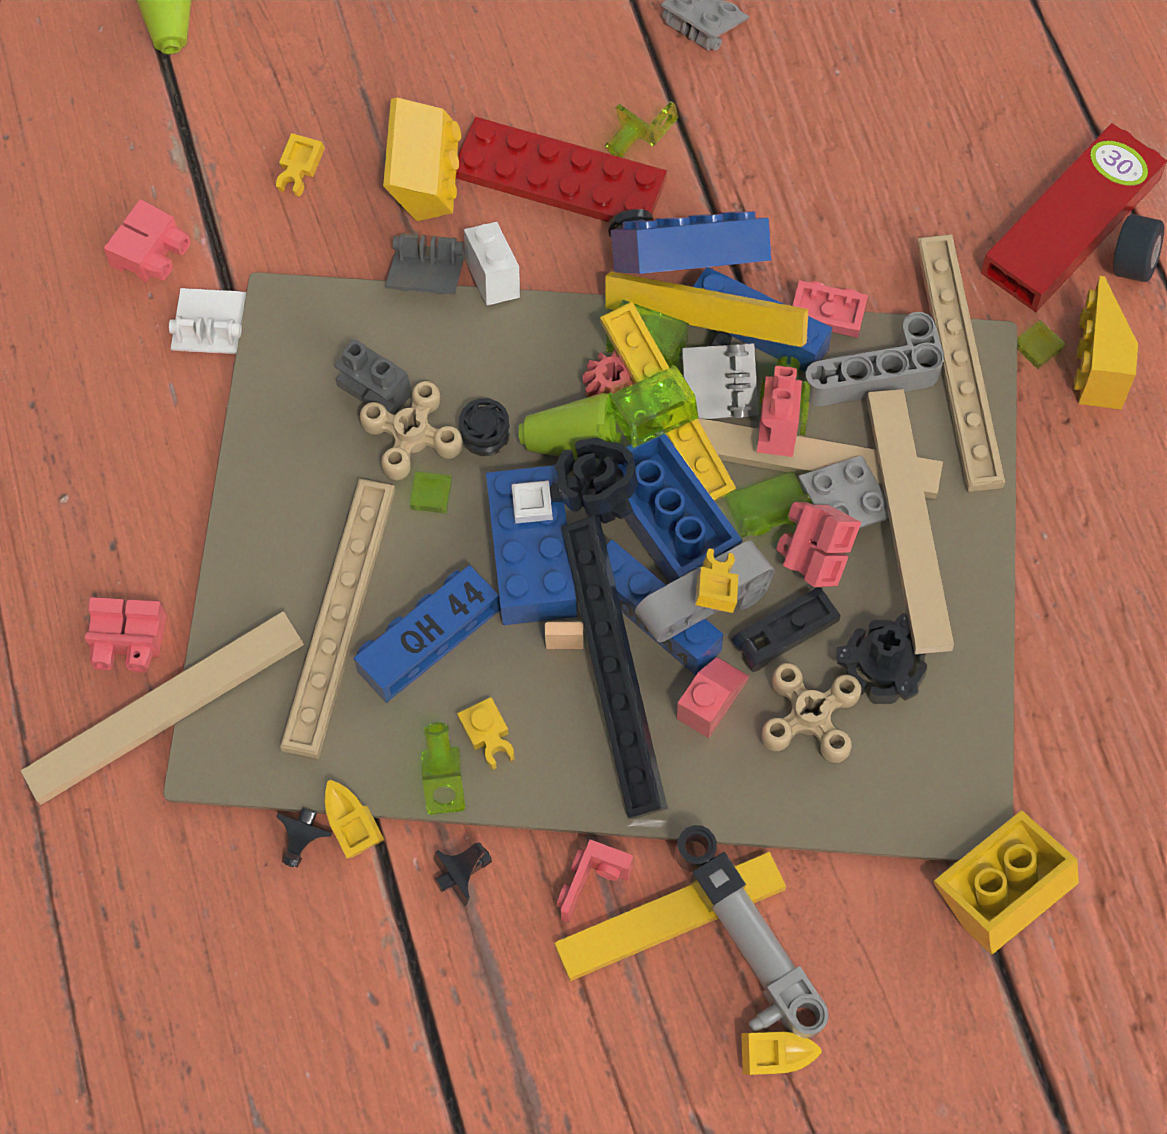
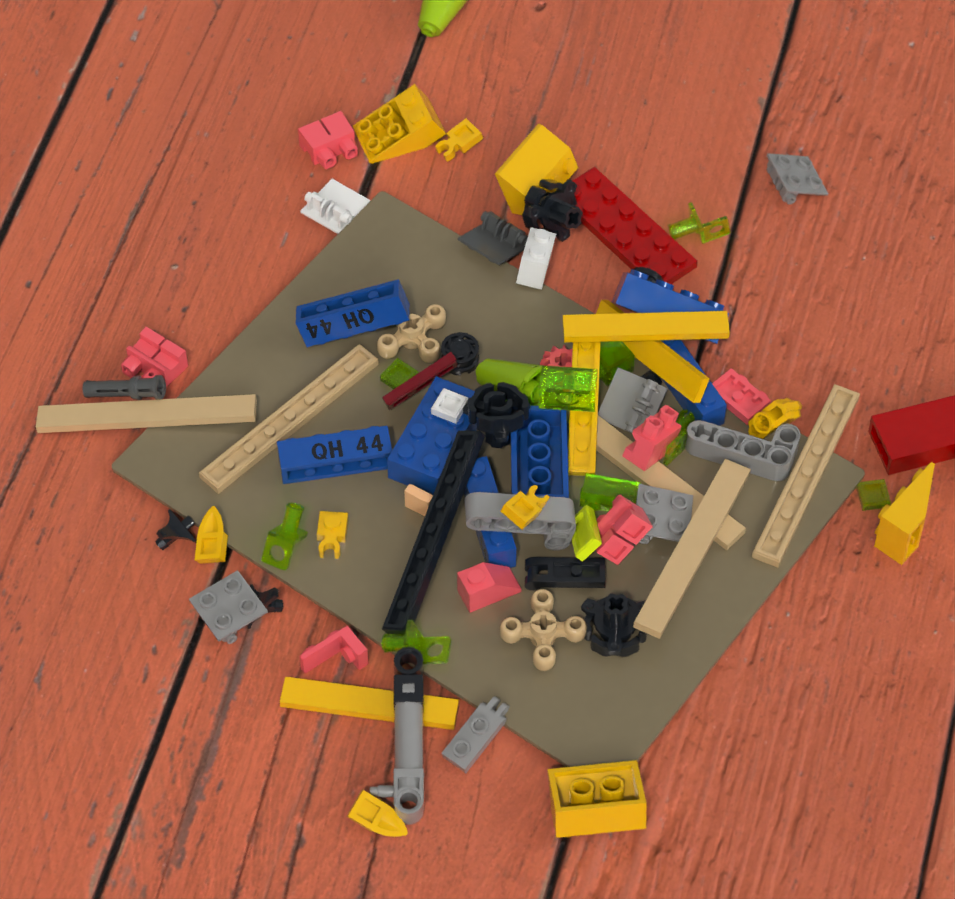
camera: 30 degrees right, 10 degrees down
(129, 682) = (135, 387): none -> dark grey pin
(217, 183) = (399, 126): none -> yellow slope
(335, 447) = (352, 313): none -> blue brick
(372, 377) = (412, 283): dark grey hips -> none
(431, 896) = (228, 606): none -> light grey hinge
(468, 487) = (420, 381): none -> dark red tile
(473, 194) = (554, 210): none -> black piece
(683, 814) = (414, 639): none -> clear neon green bracket
(689, 284) = (645, 326): none -> yellow tile
(791, 575) = (587, 534): none -> neon yellow tile
(819, 884) = (476, 734): none -> light grey hinge
(885, 314) = (771, 417): none -> yellow rock

